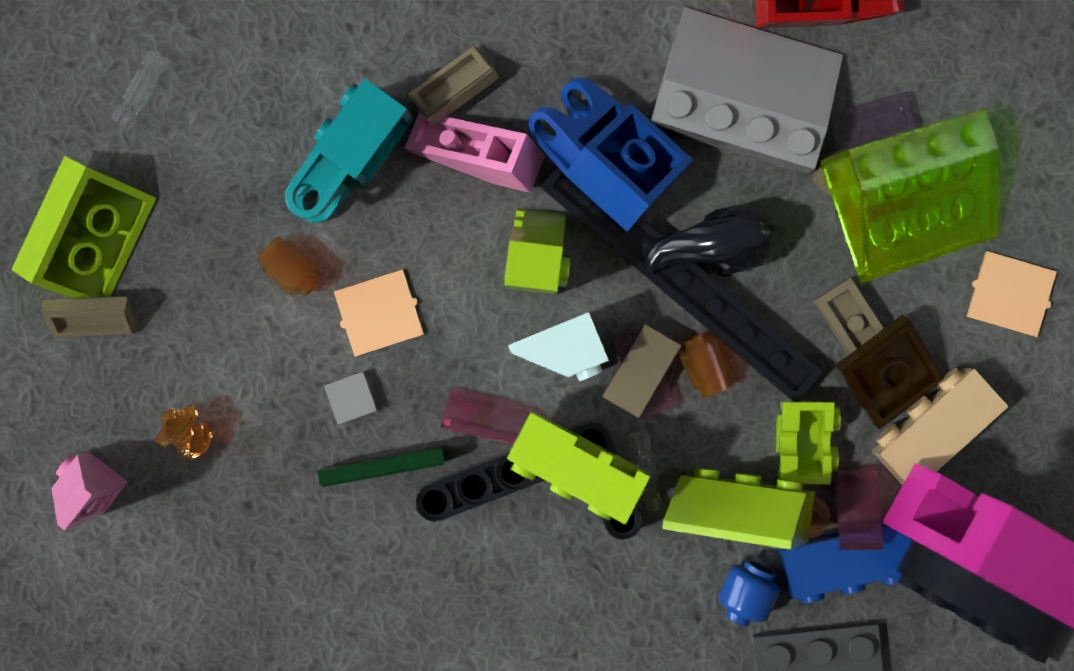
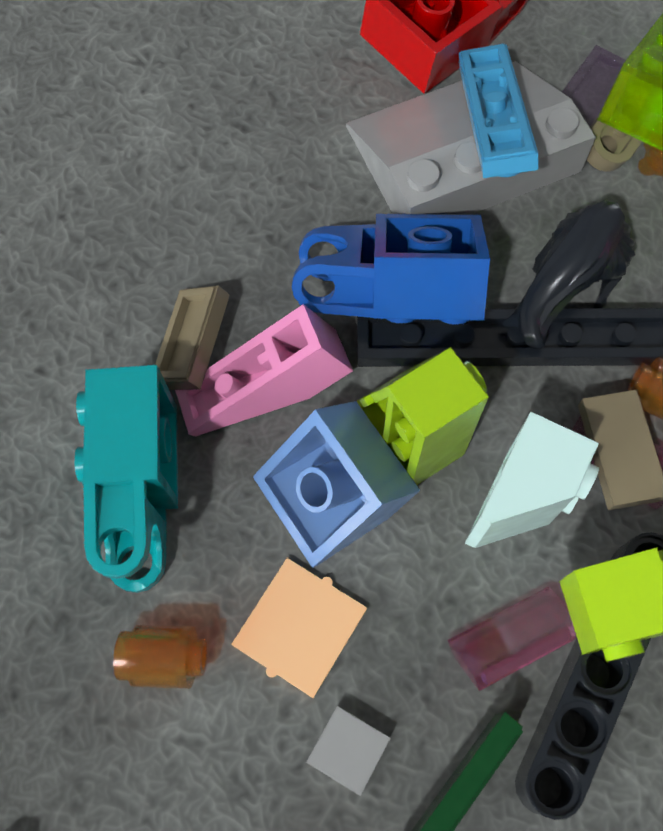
camera: 35 degrees left, 20 degrees down
(463, 249) = (334, 481): none -> medium blue slope
(766, 97) = (497, 112): none -> dark azure plate

